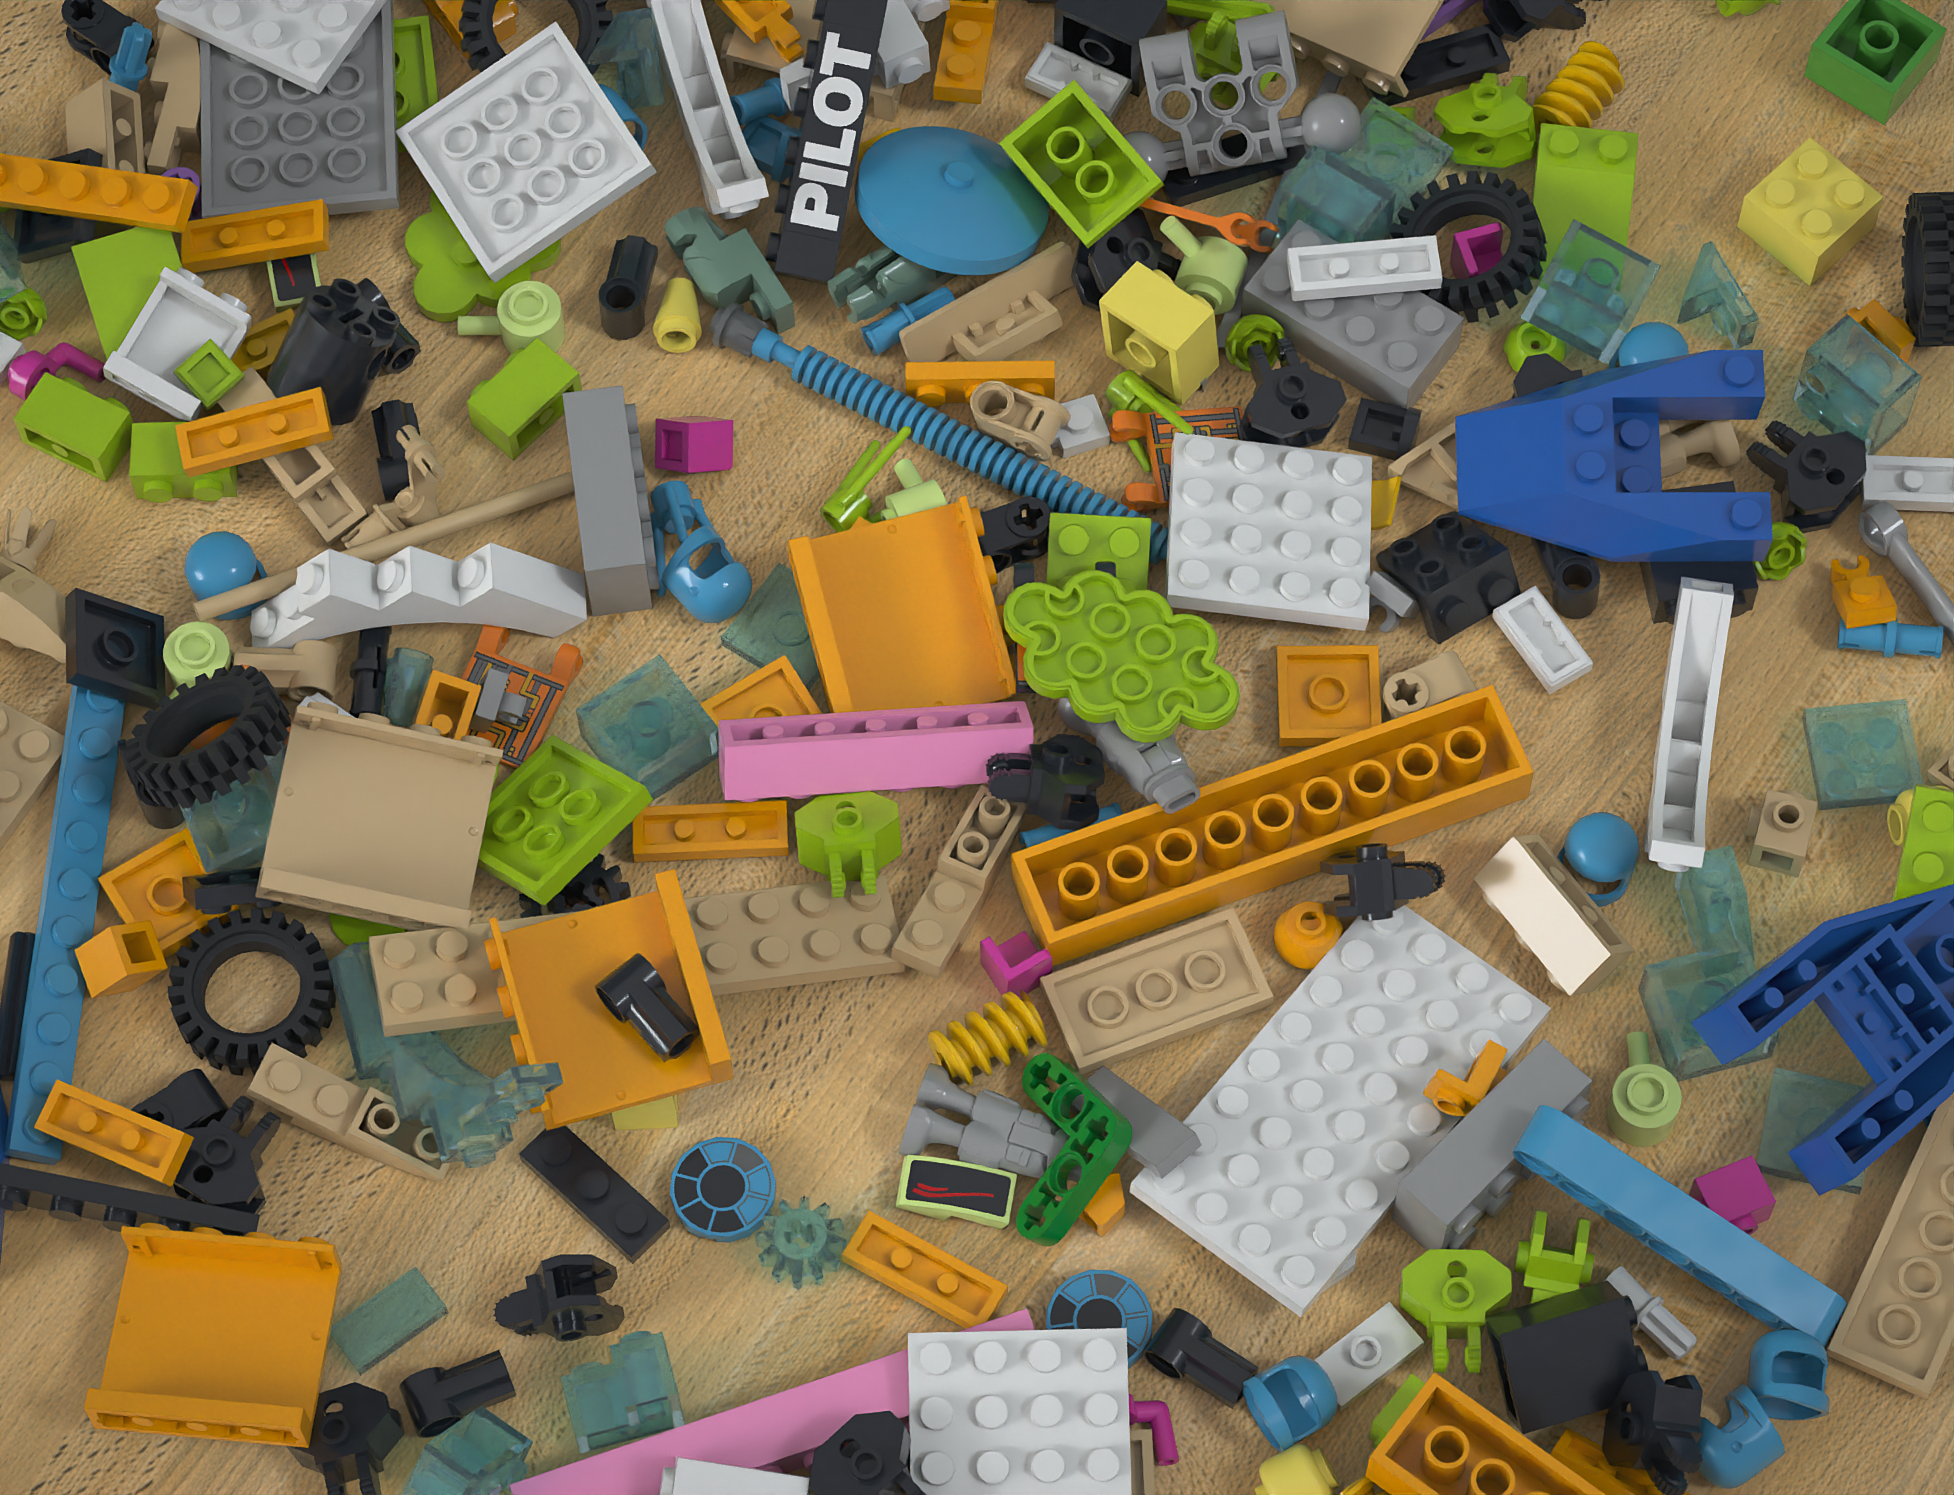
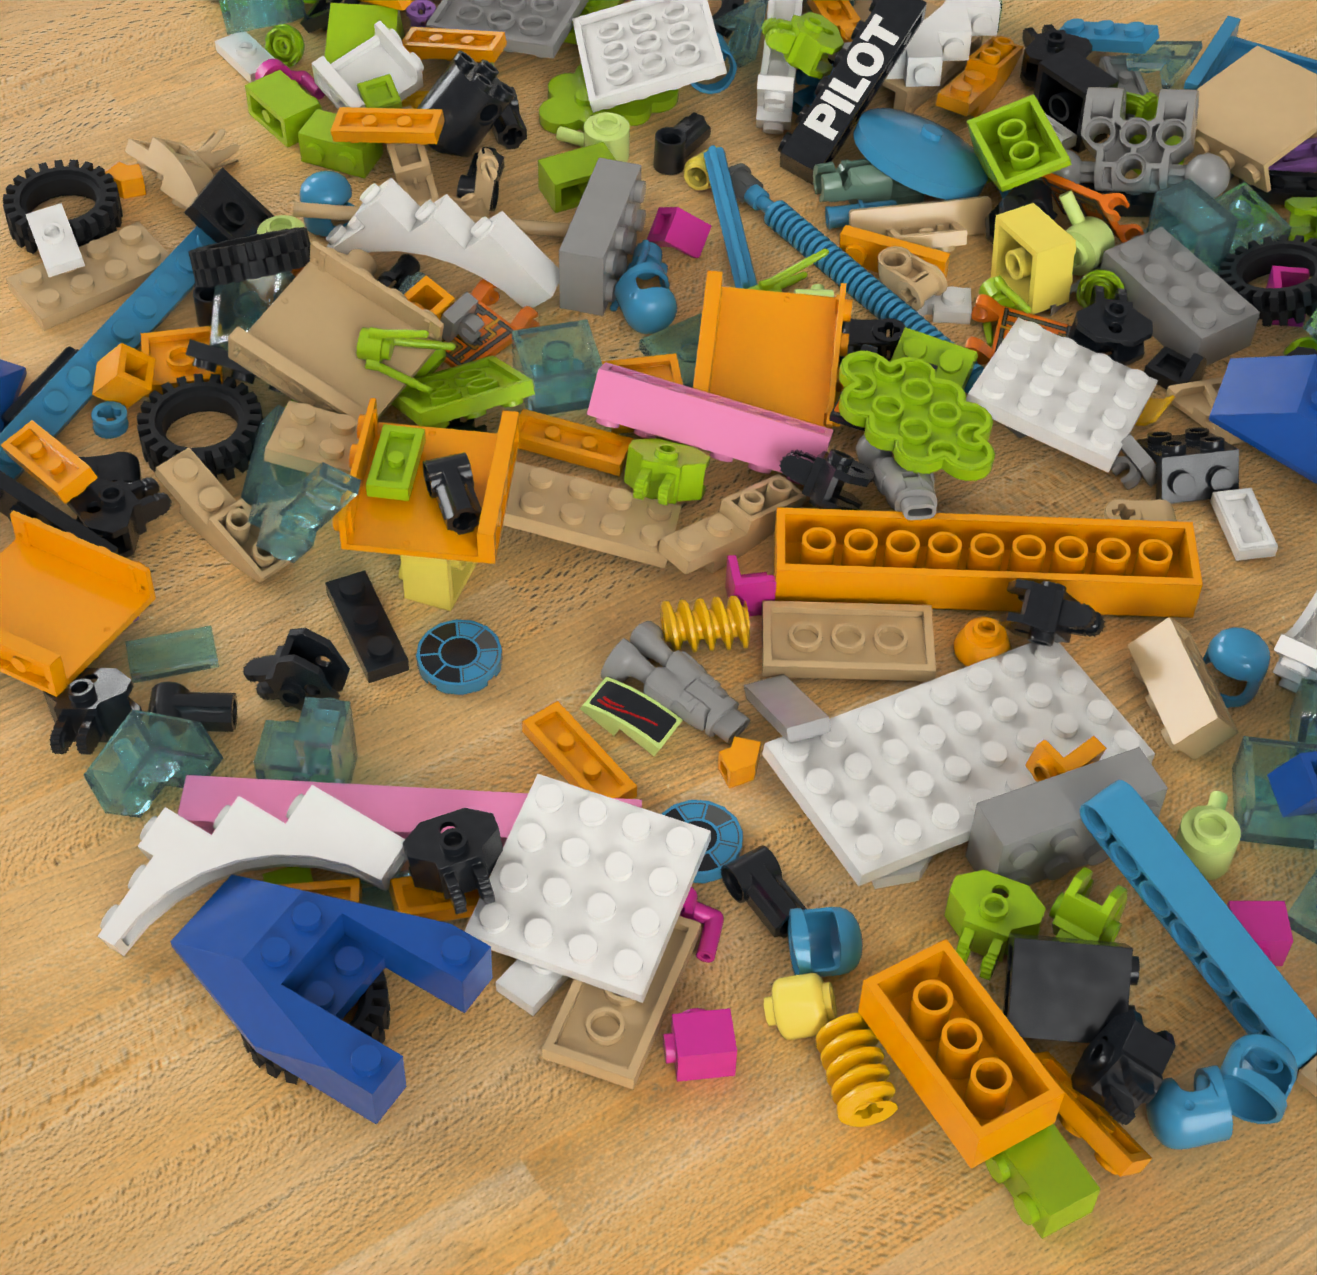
camera: 20 degrees right, 15 degrees down
(121, 1032) = (109, 429): none -> dark azure bush
(433, 807) = (378, 344): none -> lime plant
(559, 992) = (395, 462): none -> lime plate
(728, 267) = (754, 148): sand green plate -> none
(741, 89) = (804, 42): none -> lime hinge
(753, 402) = (729, 218): none -> dark azure axle
(813, 1228) = (495, 704): clear light blue gear -> none
(1085, 1137) = (751, 705): green beam -> none
(1326, 692) = (1064, 494): light orange plate -> none
(1364, 268) = (1197, 255): white plate -> none
(1369, 1354) = (900, 937): white plate -> none
(1565, 568) = (1281, 491): black piece -> none
(1653, 1317) = (1153, 995): white axle -> none

